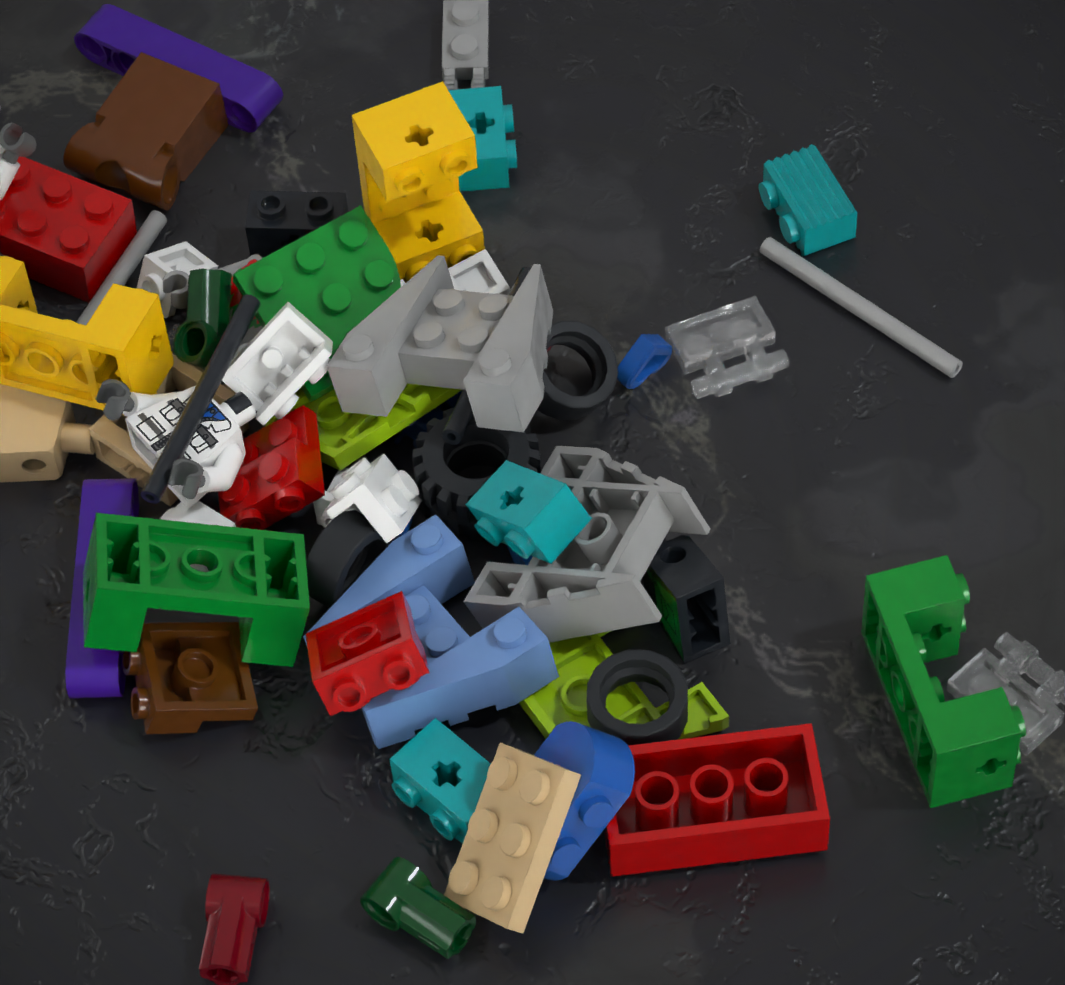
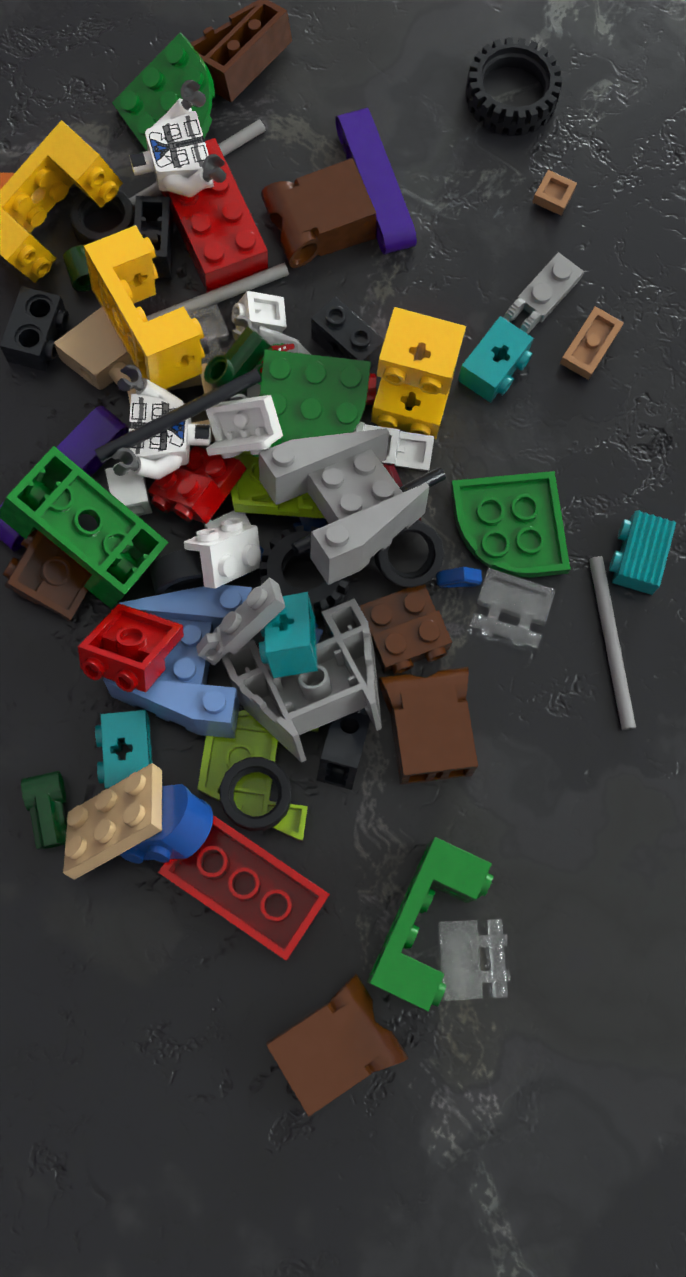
camera: 30 degrees right, 20 degrees up
(466, 539) = (244, 623): none -> light grey hinge
(562, 56) = (591, 343): none -> medium nougat plate
(647, 271) = (513, 523): none -> green plate
(650, 437) = (406, 629): none -> reddish brown plate
(763, 512) = (431, 725): none -> reddish brown piece
(959, 882) = (335, 1047): none -> reddish brown piece

